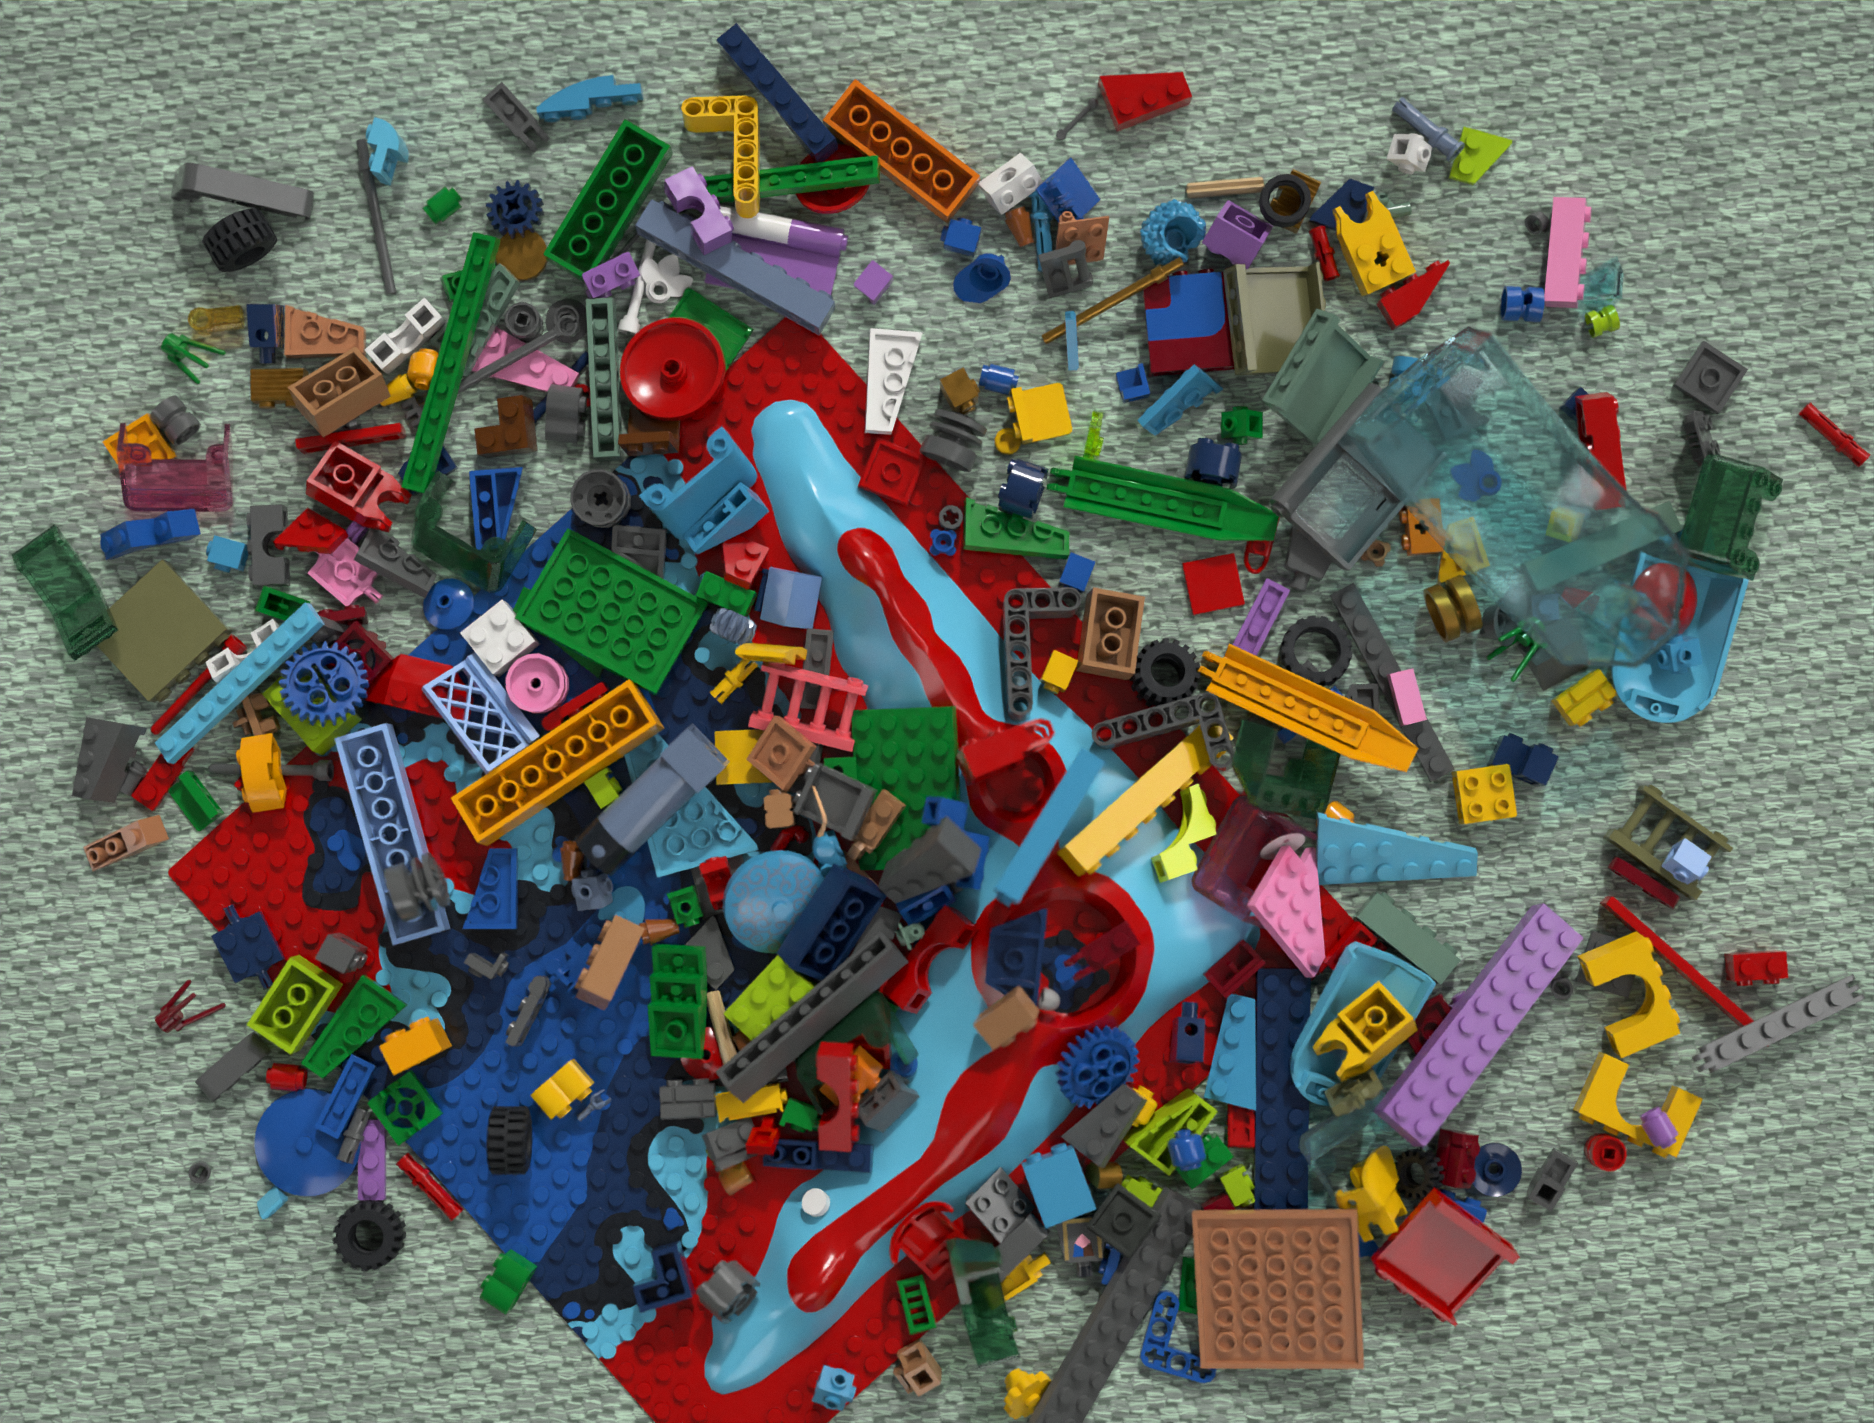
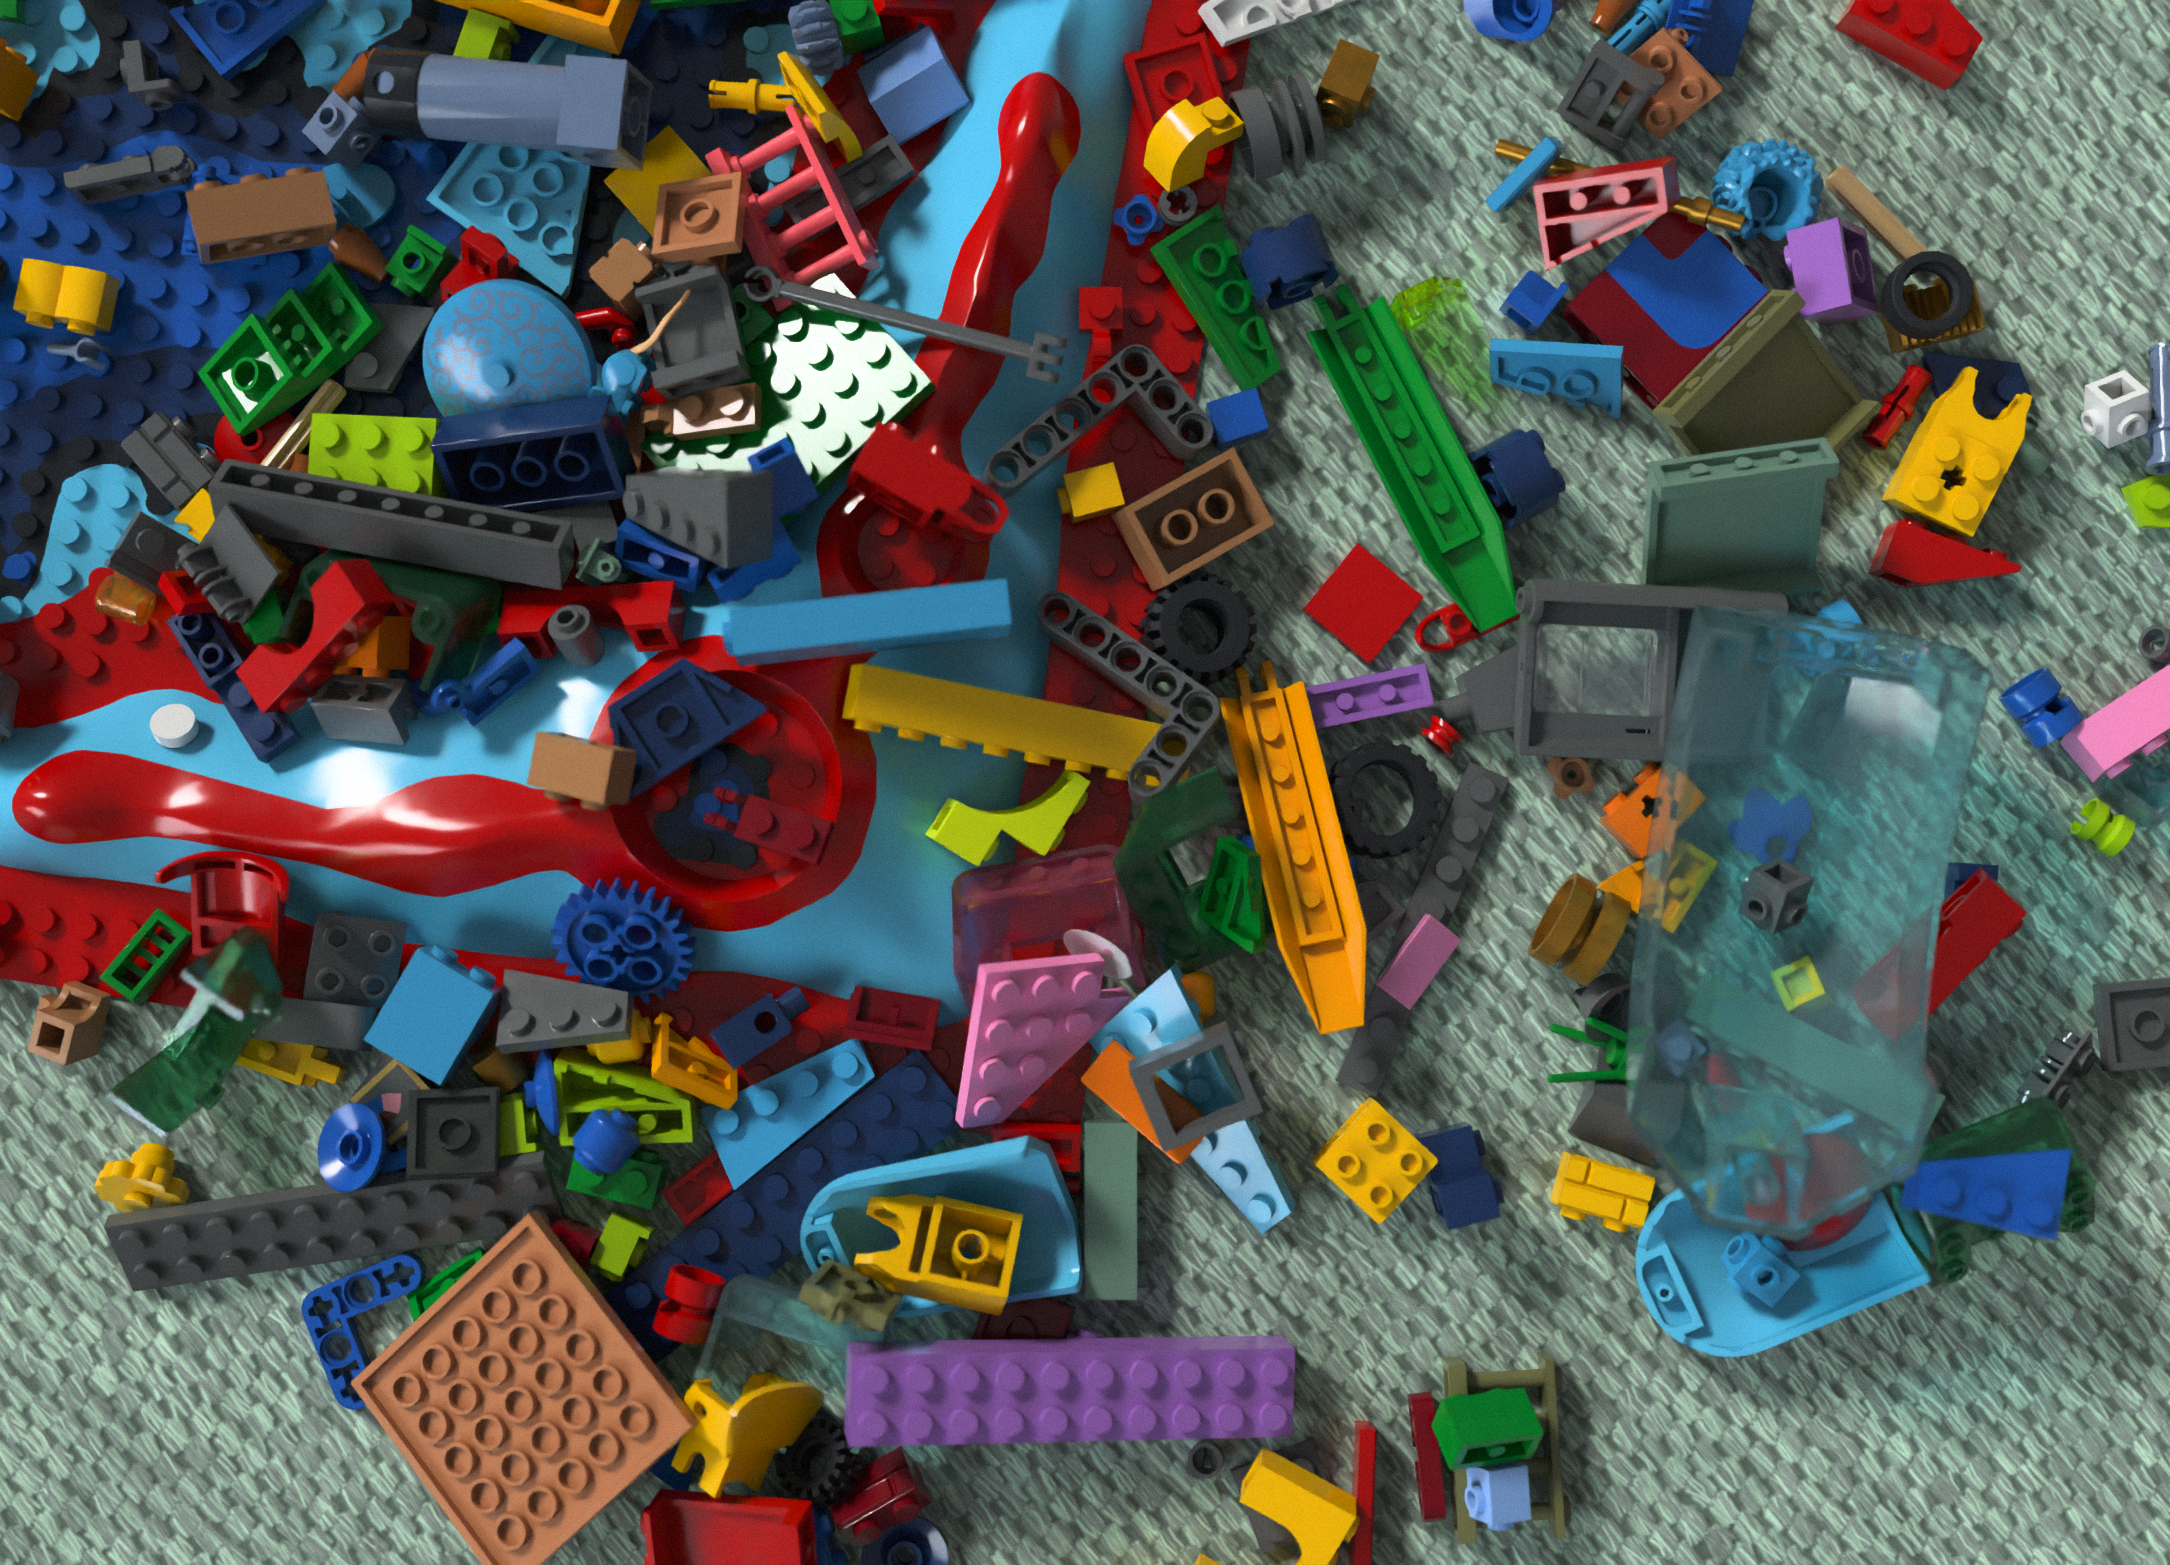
camera: 50 degrees right, 0 degrees up
(770, 1109) = (230, 567): none -> dark grey hinge
(924, 1040) = (488, 685): none -> blue hinge
(925, 488) = (1184, 136): none -> yellow brick
(933, 972) = (577, 636): none -> dark grey brick
(974, 597) = (1100, 315): none -> red plate
(980, 646) = (1033, 353): none -> dark grey hinge
(998, 379) = (1401, 126): blue brick -> none
(1006, 442) = (1333, 203): yellow tile -> none
(1039, 413) = (1399, 211): yellow bracket -> none
(1048, 1000) = (653, 808): light grey hinge -> none
(1082, 1280) = (351, 1147): none -> blue dish
(1116, 319) = (1599, 203): none -> wedge
(1137, 1163) = (542, 1092): none -> blue dish
(1180, 1083) = (691, 1066): none -> light orange wing
(1241, 425) = (1594, 475): green brick -> none
(1295, 1175) = (687, 1311): none -> red wheel
(1307, 598) = (1441, 735): none -> red bush
(1307, 759) = (1234, 895): none -> green wing
(1362, 841) = (1143, 1067): none -> dark grey window
(1371, 879) = (1113, 1084): none -> orange slope
(1511, 504) = (1775, 896): none -> dark grey brick
(1652, 843) = (1487, 1428): none -> green brick
(1730, 517) = (1997, 1191): none -> blue wedge

